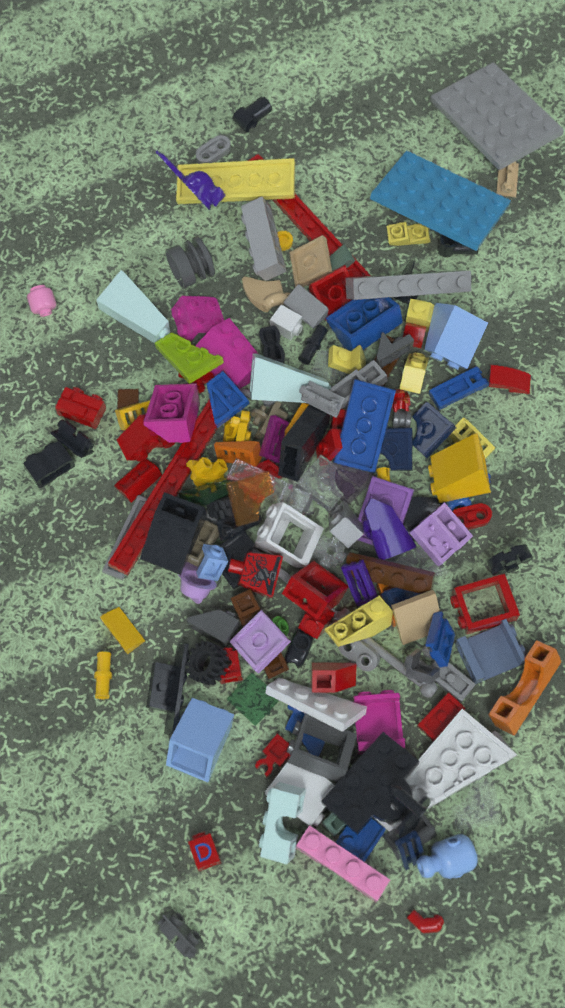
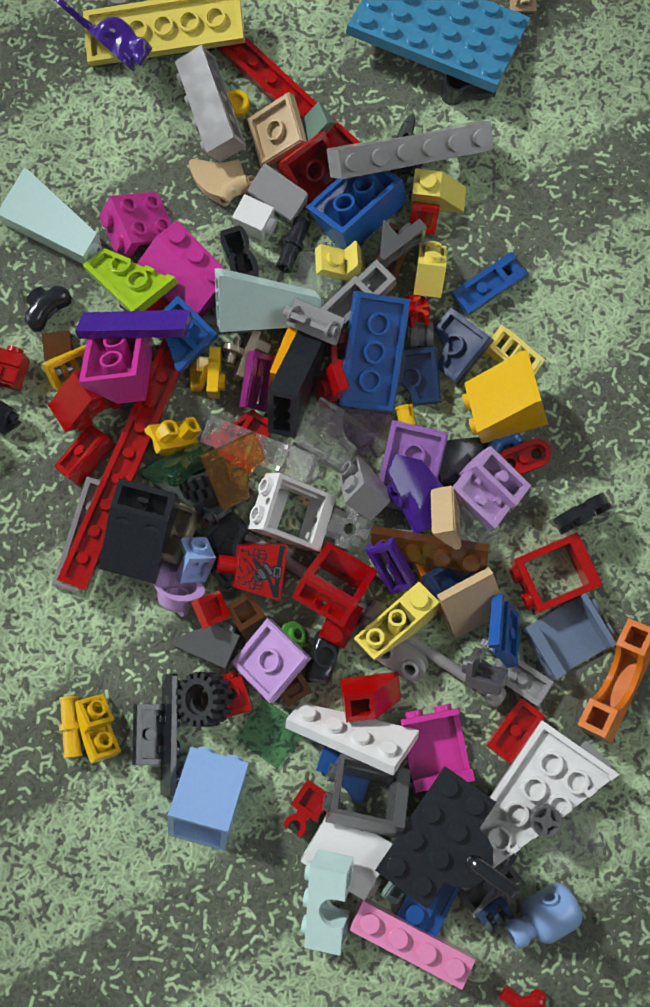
camera: 10 degrees left, 10 degrees up
(121, 677) = (95, 728): none -> yellow slope
(122, 368) = (44, 305): none -> black piece
(122, 629) = (88, 662): yellow slope -> none
(188, 387) = (134, 324): none -> dark purple tile
(191, 262) = (116, 147): dark grey wheel -> none
(204, 851) = (231, 947): red brick -> none
(220, 597) = (211, 609): none -> red plate
(250, 449) = (218, 403): orange slope -> none
(402, 234) = (397, 79): light yellow slope -> none
(404, 548) = (446, 516): none -> tan slope
(454, 335) = (477, 213): light blue slope -> none
(457, 777) = (550, 821): none -> dark grey wheel
(509, 378) = (555, 264): red slope -> none

